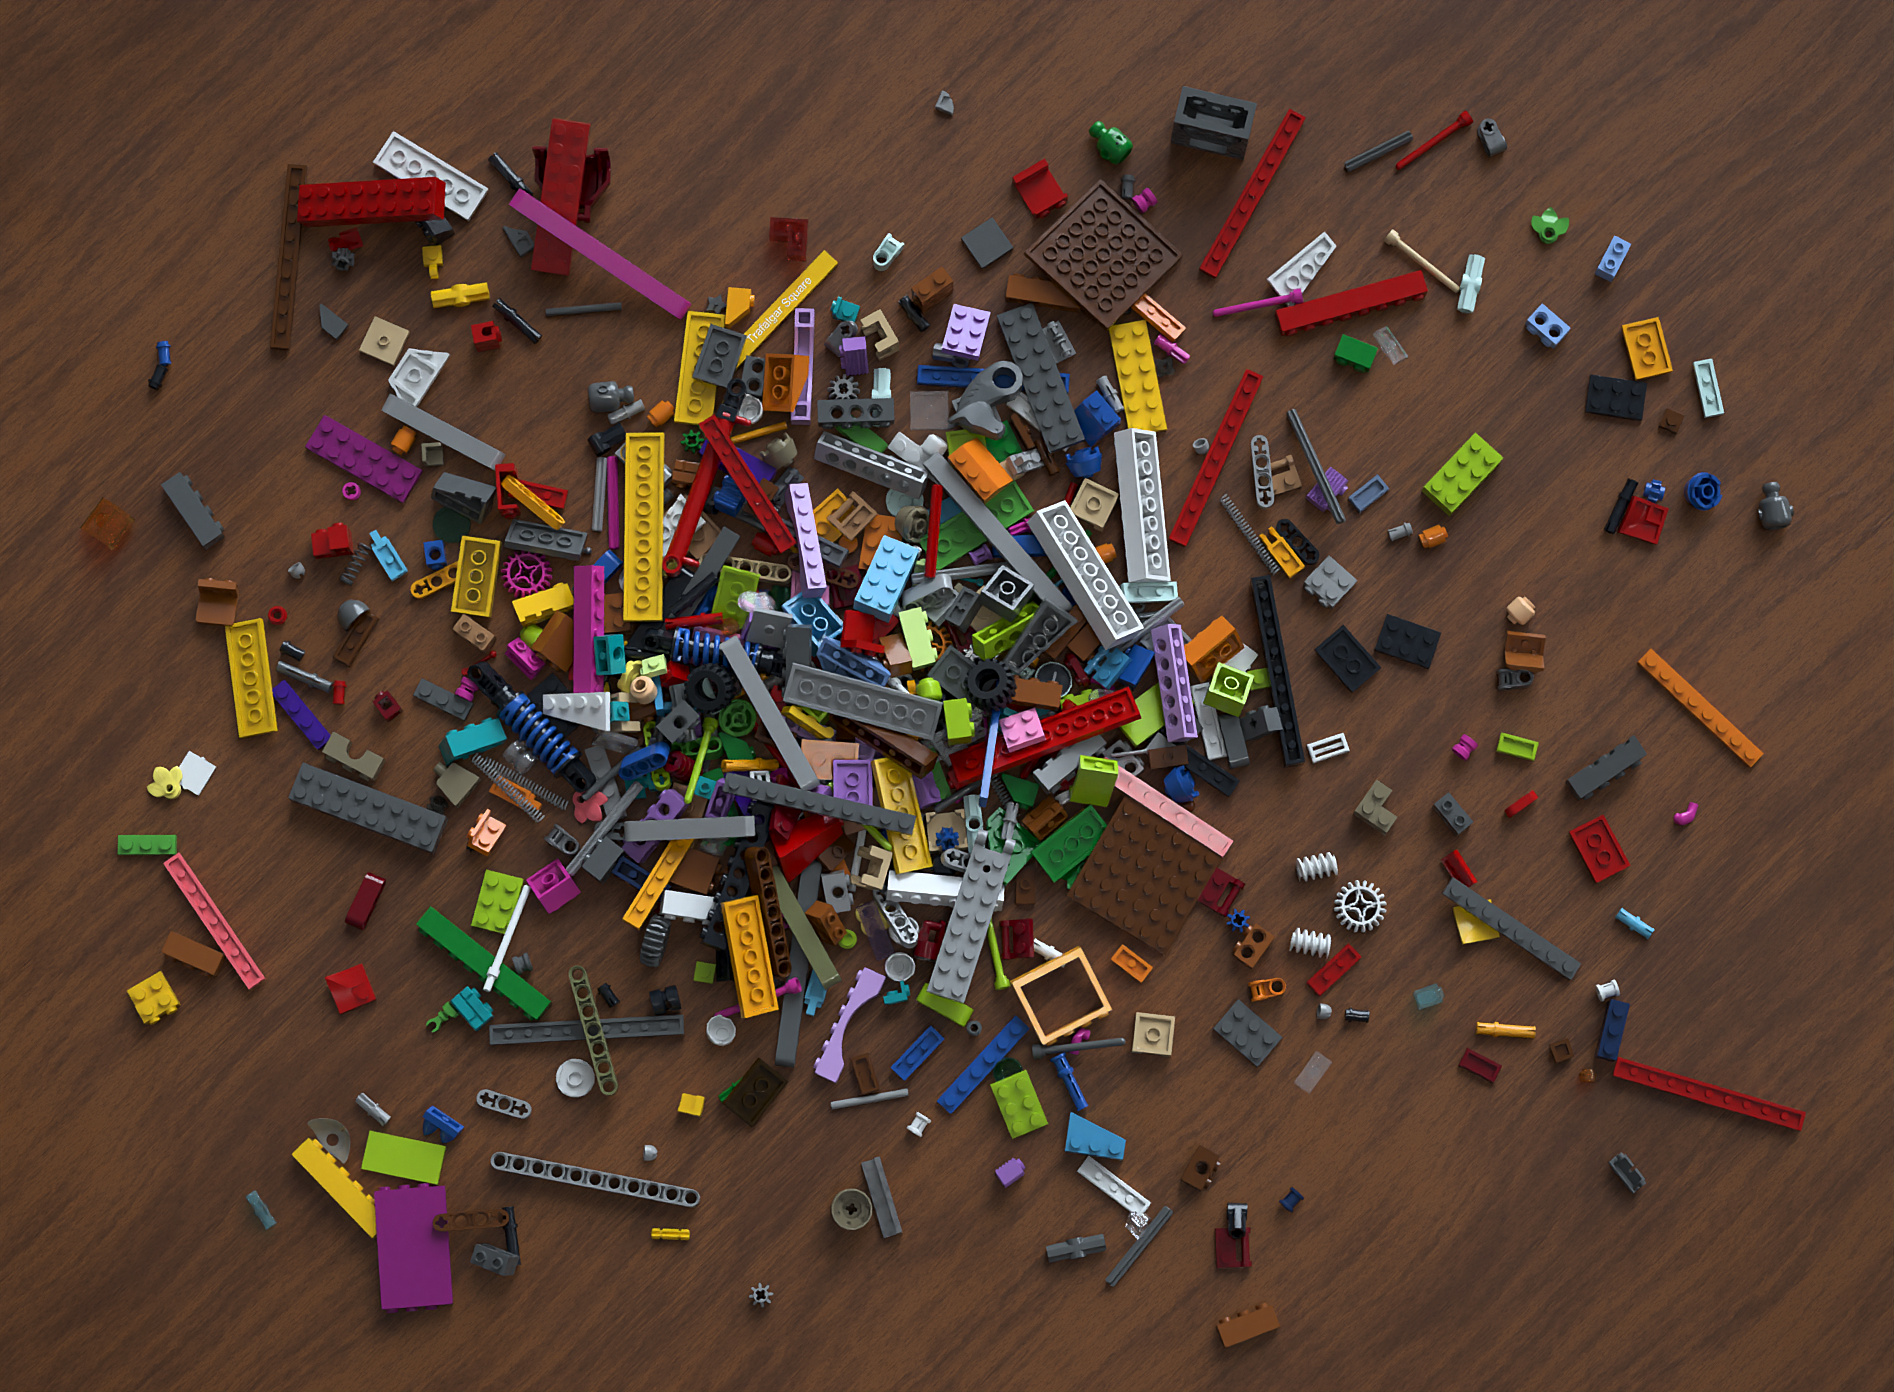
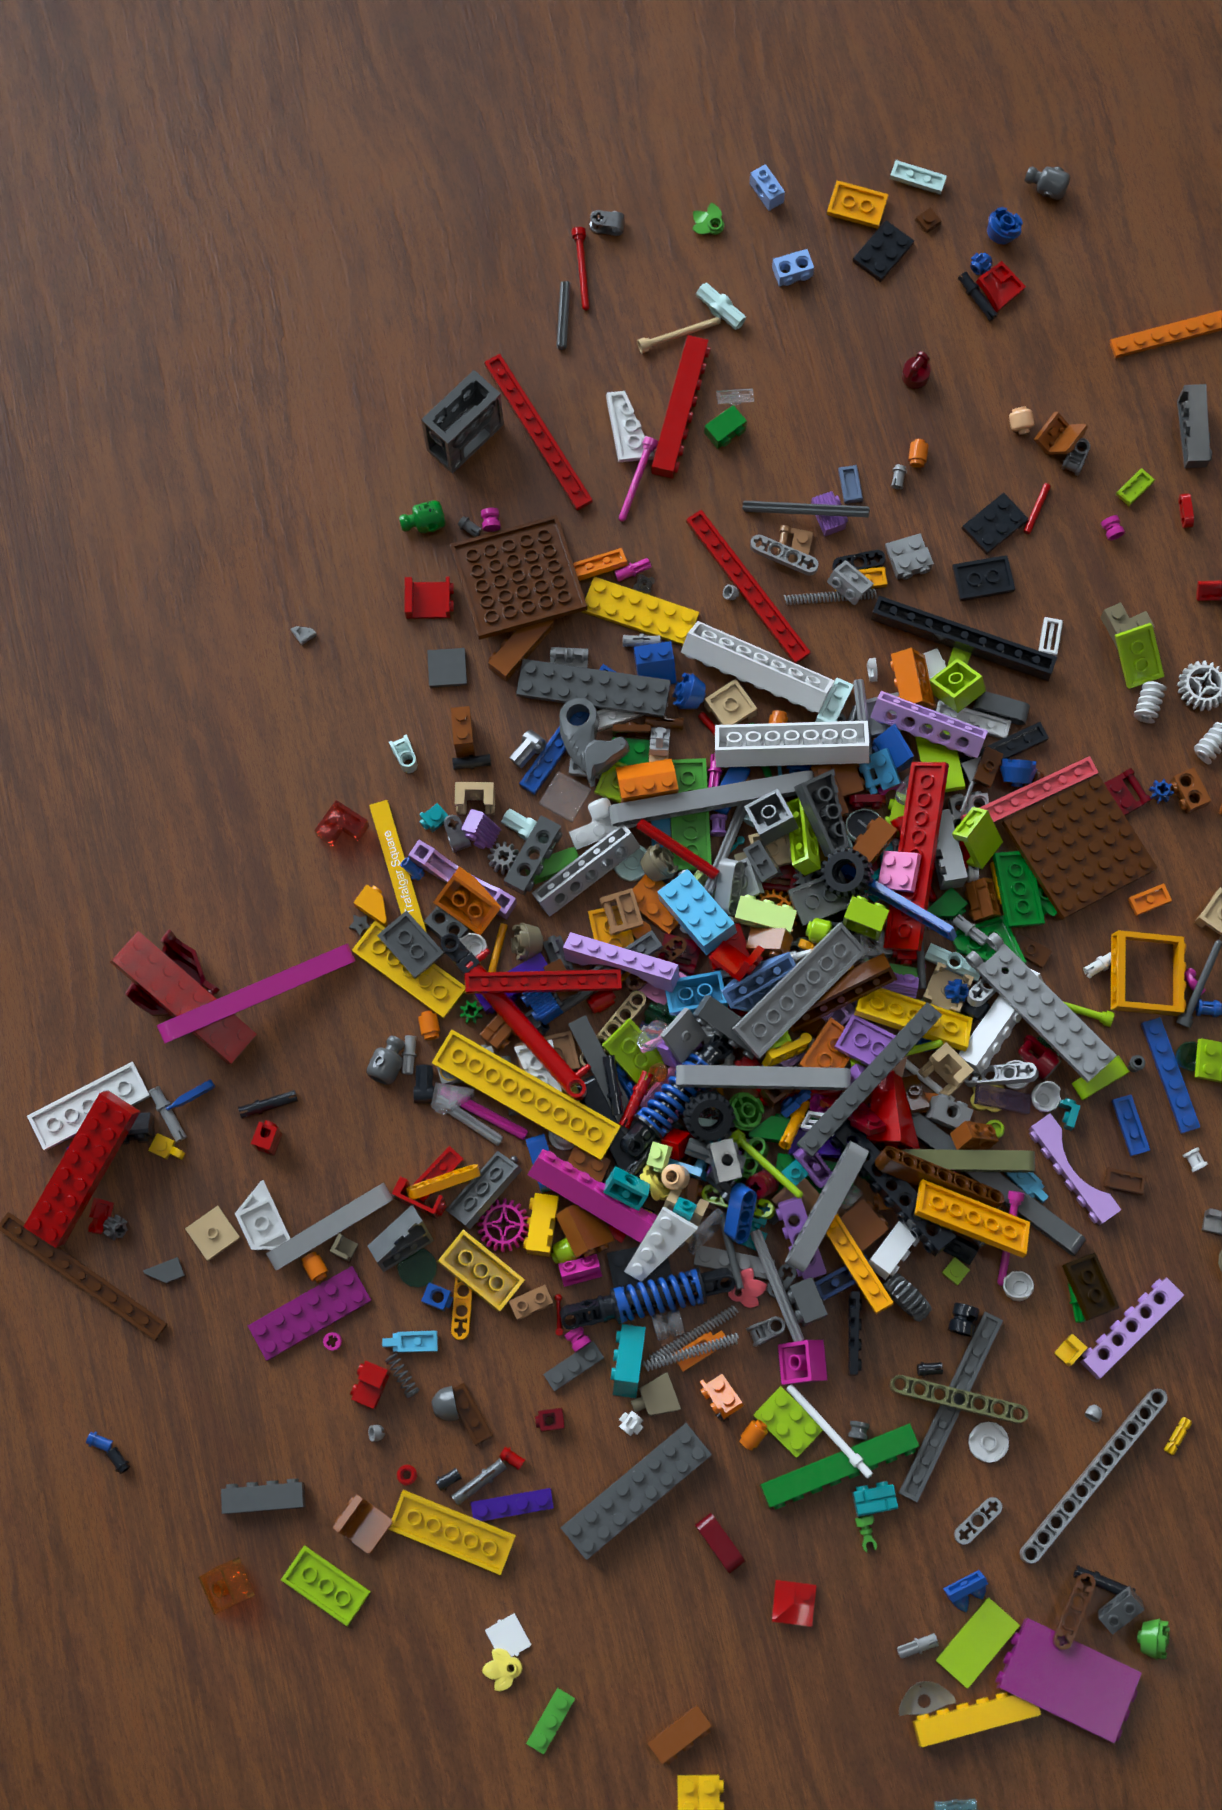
camera: 60 degrees left, 5 degrees down
(152, 603) = (325, 1585): none -> lime tile
(214, 921) = (659, 1696): coral plate -> none
(338, 750) = (565, 1489): dark tan arch -> none
(421, 772) = (631, 1423): none -> white gear
(437, 804) = (668, 1426): clear smoke plate -> none
(460, 295) = (213, 1141): yellow piece -> none
(465, 237) = (168, 1116): none -> light grey pin
(469, 878) = (753, 1434): none -> orange brick
(485, 252) = (192, 1094): none -> blue piece
(487, 1300) = (1154, 1638): none -> bright green cone
(514, 181) = (141, 1034): black pin -> none
(520, 240) = (196, 1061): dark grey tile -> none
(584, 309) = (293, 1040): dark grey bar -> none
(606, 465) = (450, 1097): none -> clear slope
(616, 905) = (854, 1327): none -> black wing
(690, 1136) = (1170, 1296): none -> lavender brick
(766, 753) = (792, 1103): none -> blue plate
(788, 319) = (415, 871): none -> blue pin
(869, 1099) = (1148, 1190): light grey bar -> none
(965, 332) = (515, 726): plate -> none
(1022, 939) = (1078, 977): dark red plate -> none
(1206, 605) = (872, 669): none -> white tile
(1260, 723) = (1002, 675): dark grey brick -> none
(1270, 543) = (849, 582): none -> light grey bracket
(1351, 833) = (1139, 655): none -> lime plate
(1444, 670) = (1037, 507): none -> red bar
(1452, 814) = (1165, 568): dark grey brick -> none
(1462, 474) = (879, 401): lime brick -> none
(1510, 492) = (916, 371): none -> dark red piece

